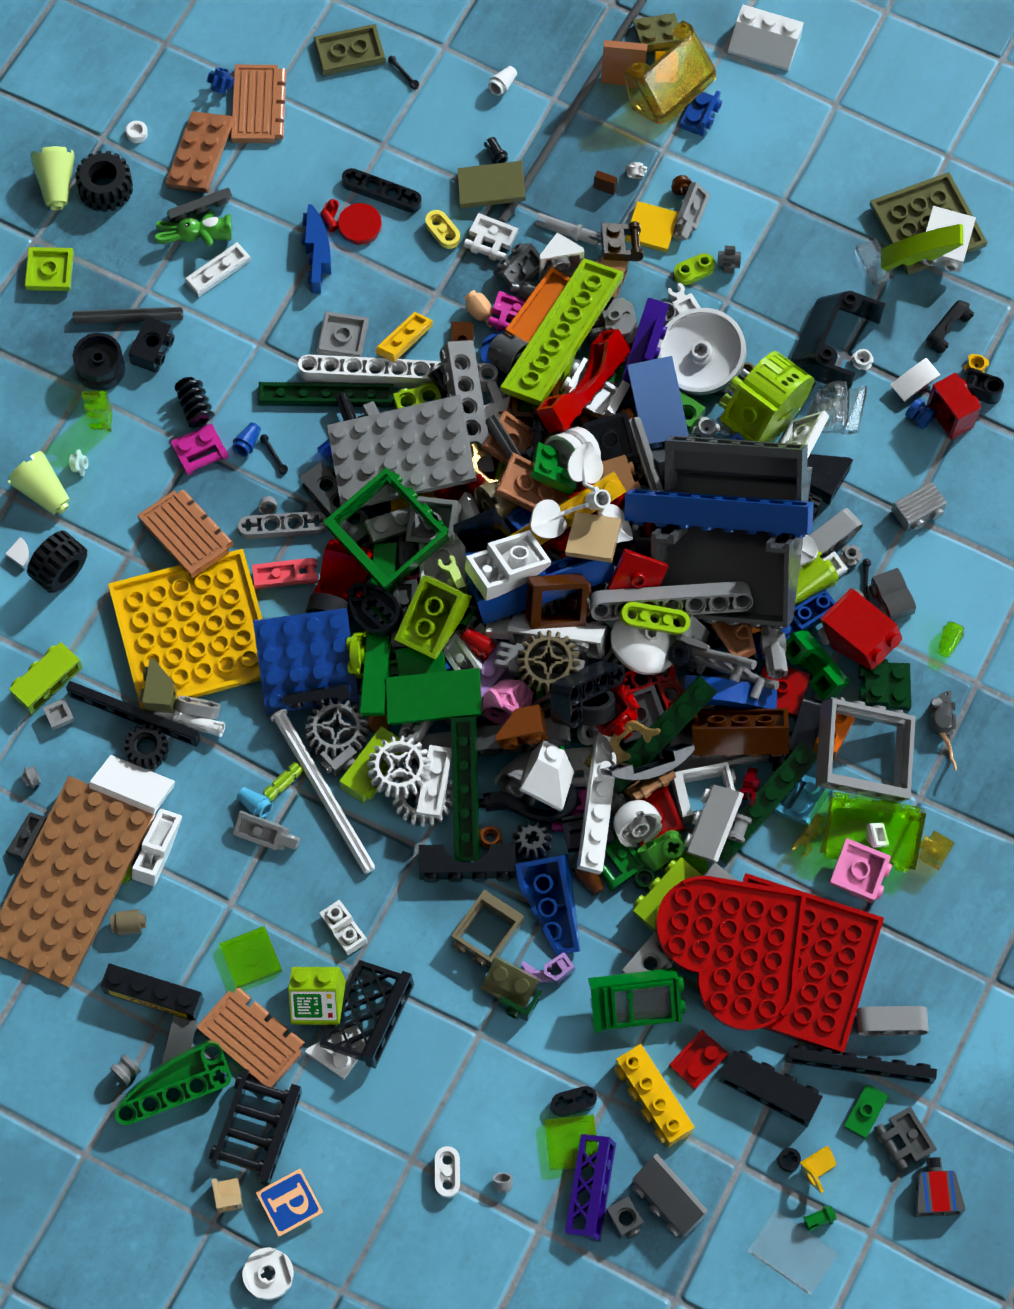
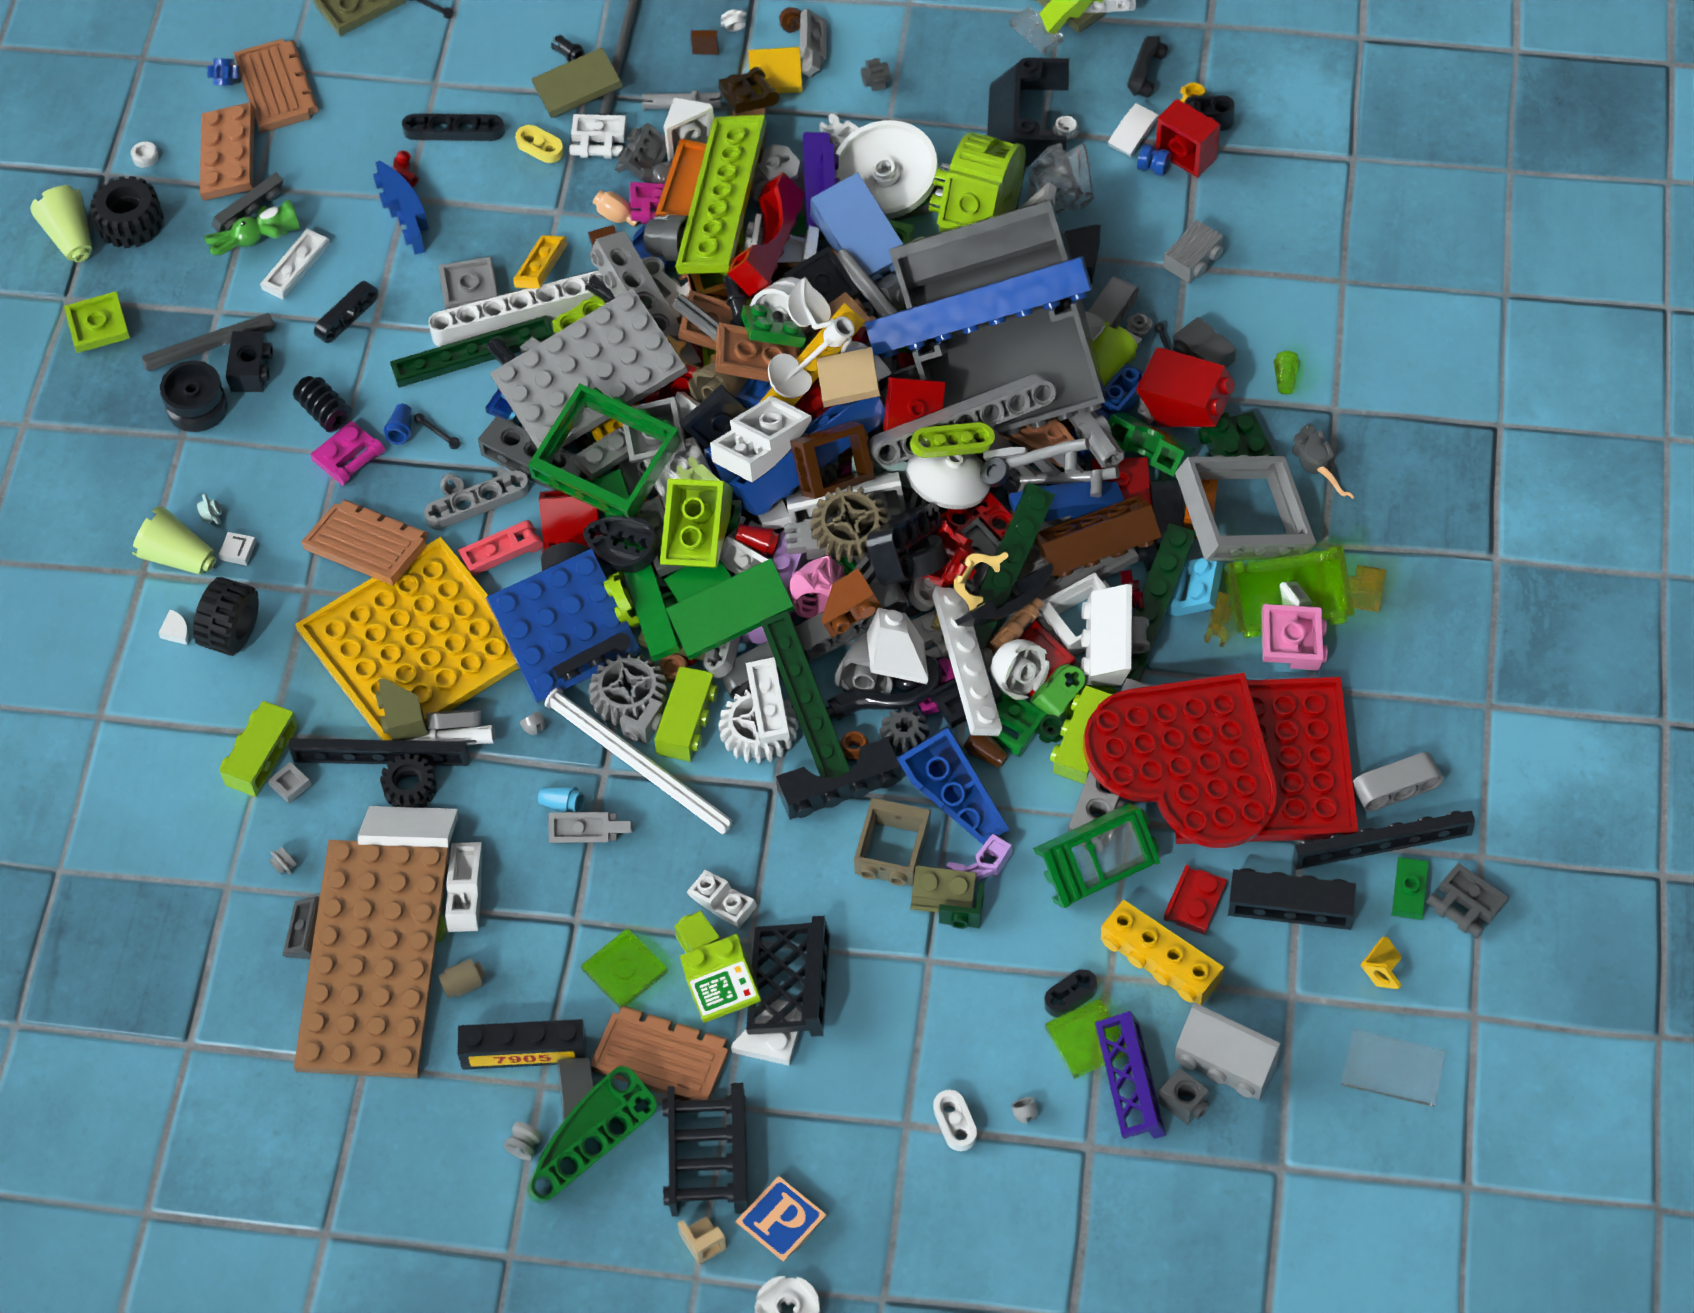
camera: 15 degrees left, 10 degrees down
(88, 502) = (237, 548): none -> white tile
(98, 406) = (211, 444): clear neon green hinge -> none
(240, 327) = (345, 312): none -> black beam
(255, 729) = (533, 723): none -> light grey hinge
(283, 781) = (587, 765): lime axle -> none
(312, 951) = (695, 932): none -> lime brick
(360, 223) = (441, 167): red tile -> none
(386, 753) = (725, 707): white gear -> none
(695, 269) = (842, 95): lime plate -> none
(783, 1154) = (1352, 962): black bush -> none
(820, 1218) = (1409, 1018): green pin -> none
(937, 1192) = (1530, 943): torso -> none

